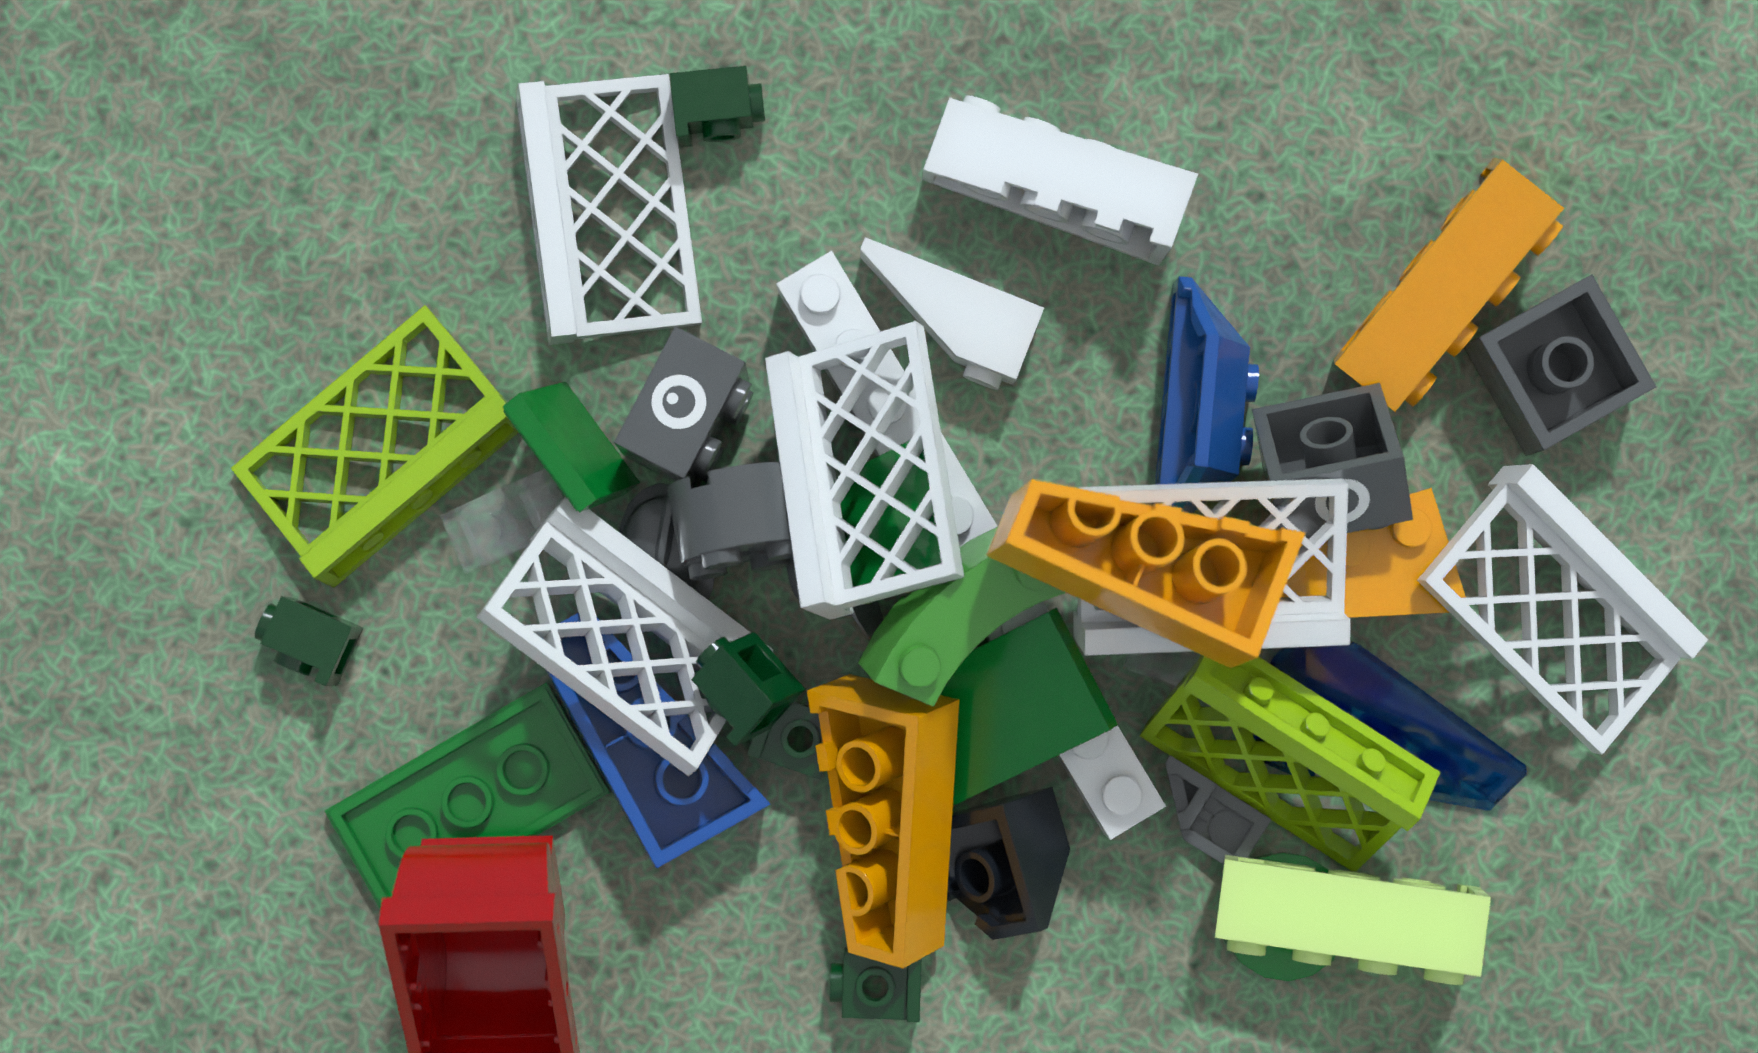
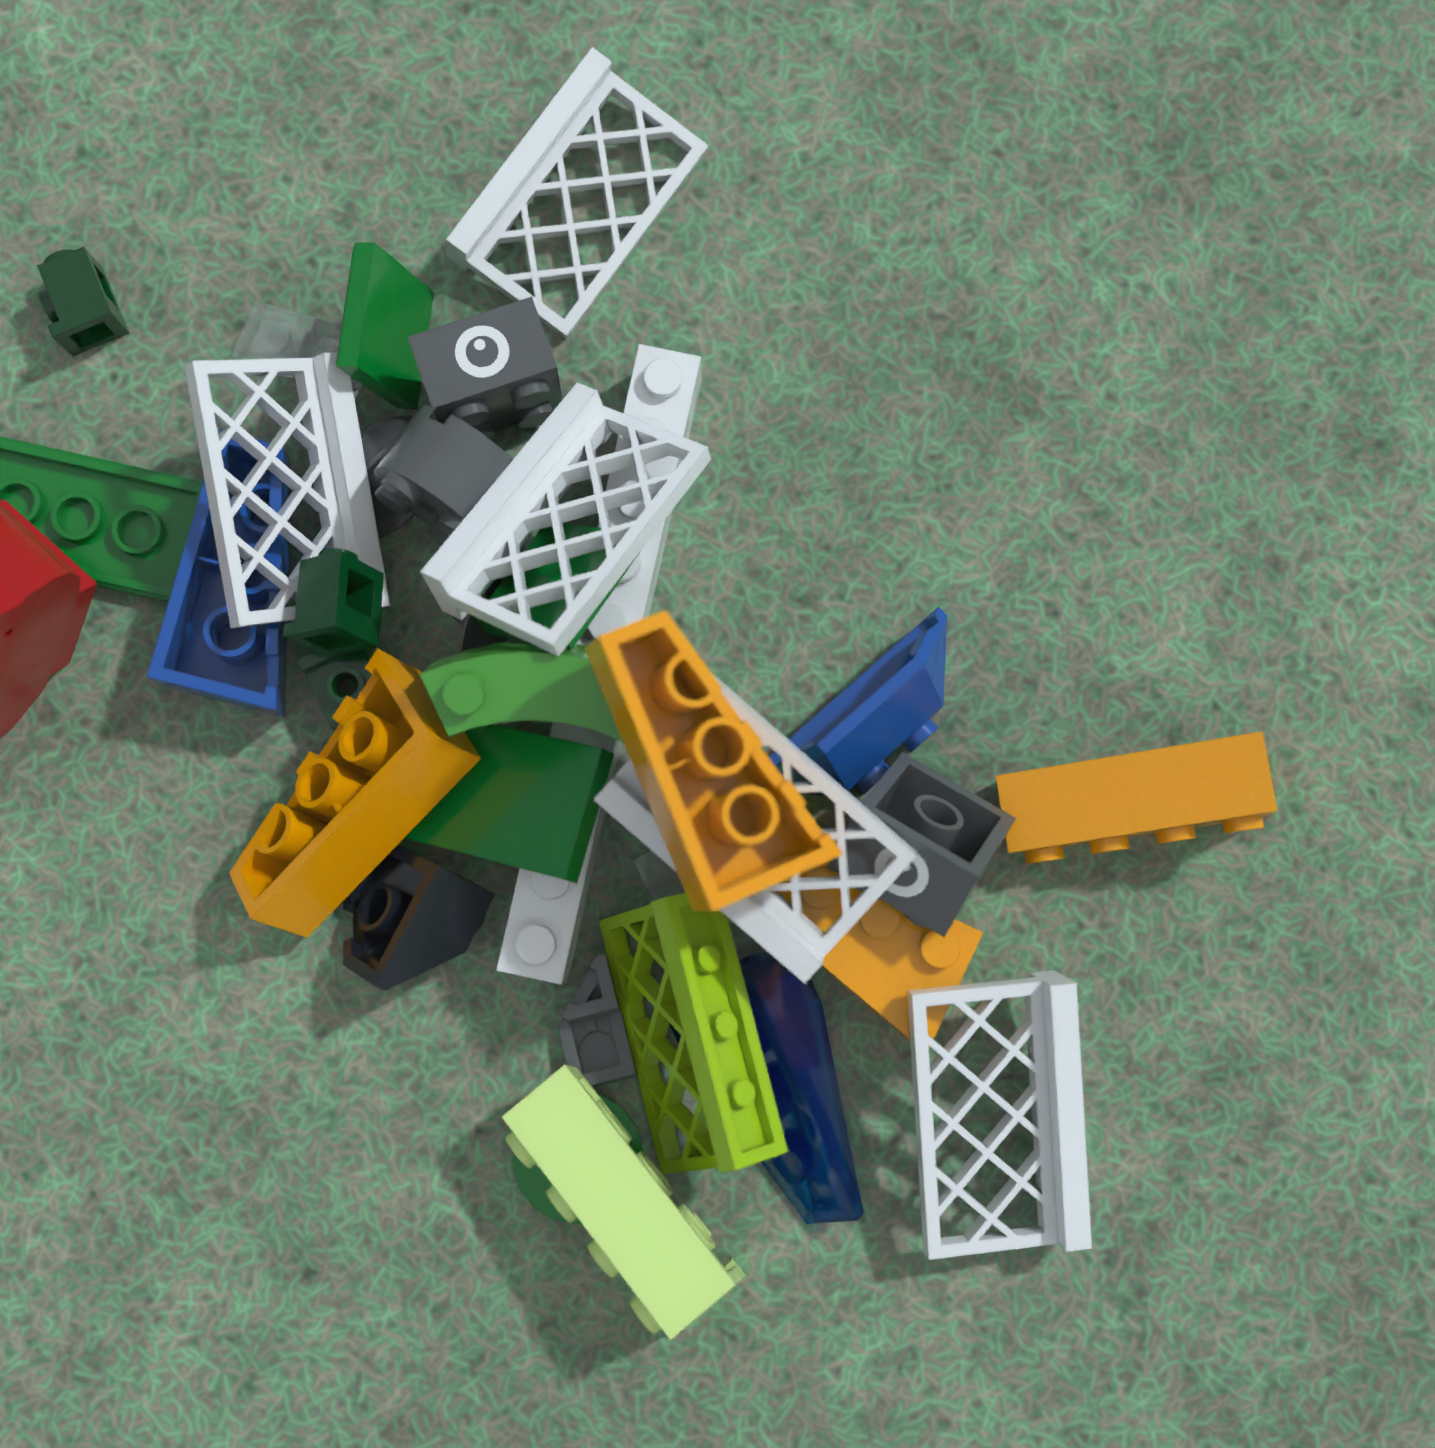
camera: 45 degrees right, 5 degrees down
(399, 495) = (243, 260): lime fence -> none
(715, 104) = (718, 190): dark green brick -> none
(898, 1002) = (245, 941): dark green brick -> none
(965, 317) = (759, 507): white slope -> none
(1059, 178) = (917, 461): white wedge -> none
(1559, 366) = (1166, 933): dark grey brick -> none

